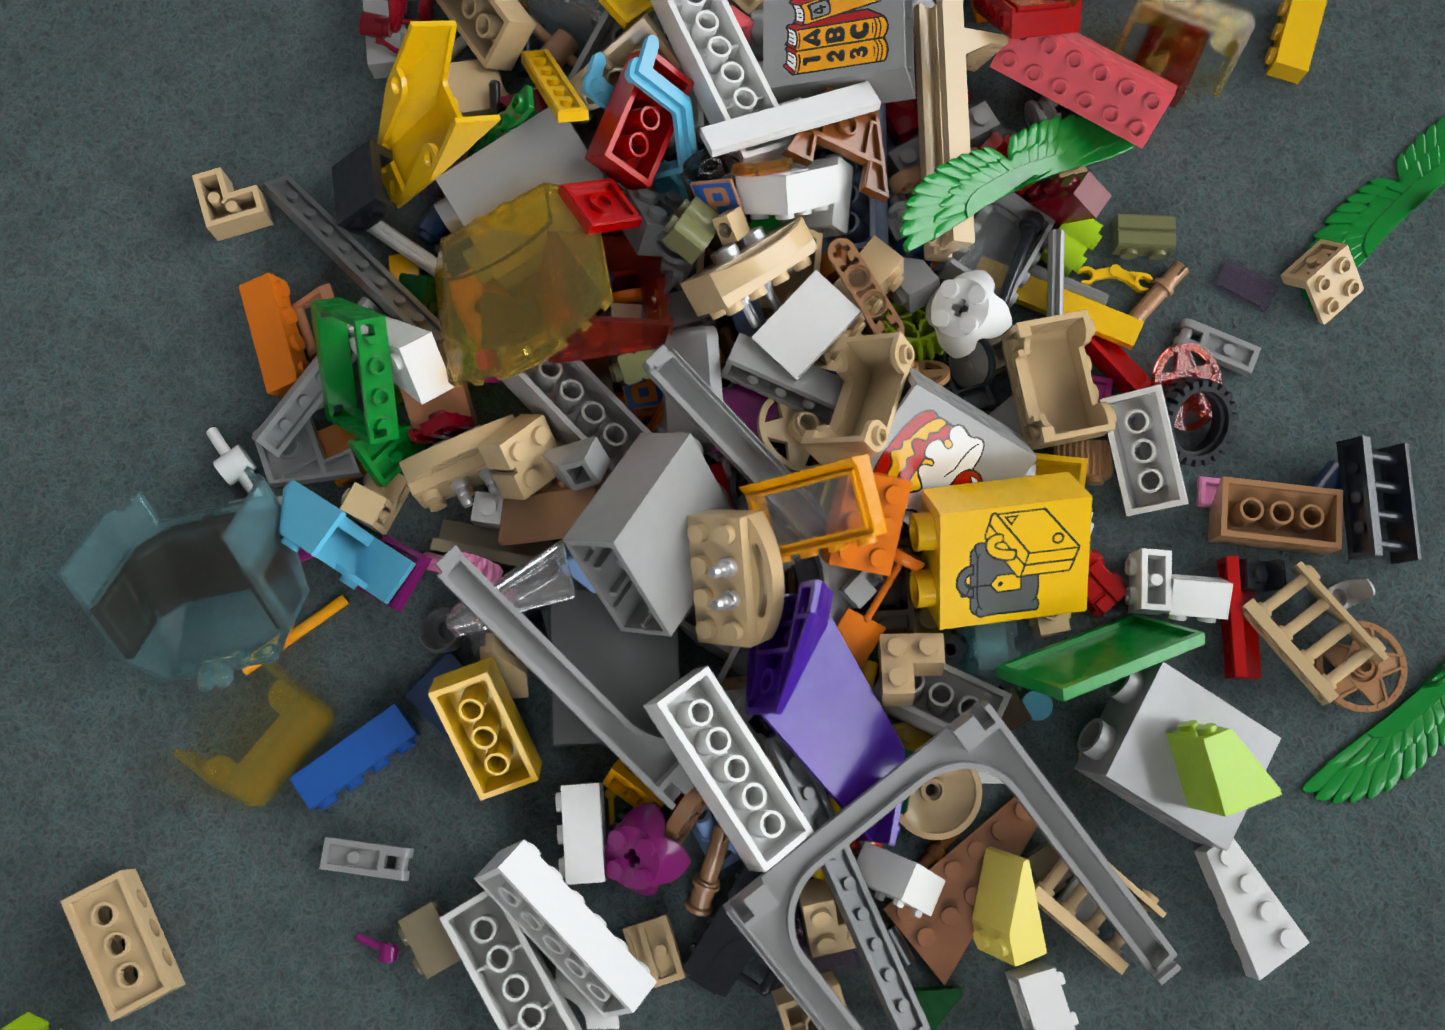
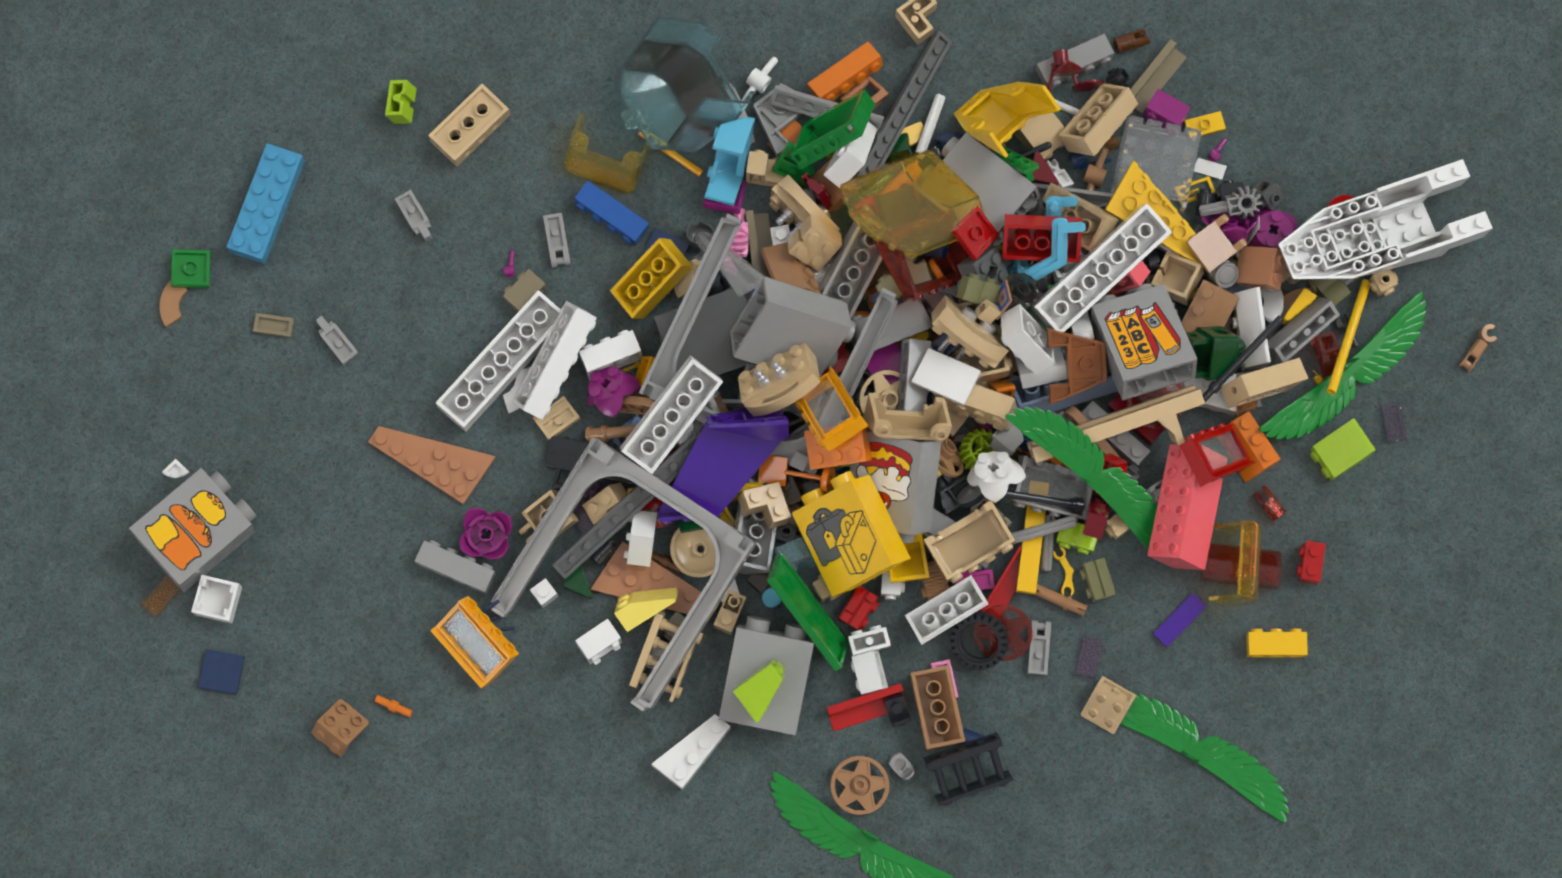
camera: 75 degrees right, 0 degrees up
(360, 188) = (954, 88): black panel -> none
(554, 86) = (1050, 180): yellow tile -> none
(578, 463) = (818, 274): light grey slope -> none
(762, 166) = (1032, 318): clear orange tile -> none
(789, 119) = (1069, 325): white tile -> none
(868, 290) = (973, 401): medium nougat beam -> none
(1059, 778) = (730, 612): none -> tan slope
(1225, 150) = (1179, 620): none -> dark purple tile
(1302, 661) = (850, 745): tan fence -> none

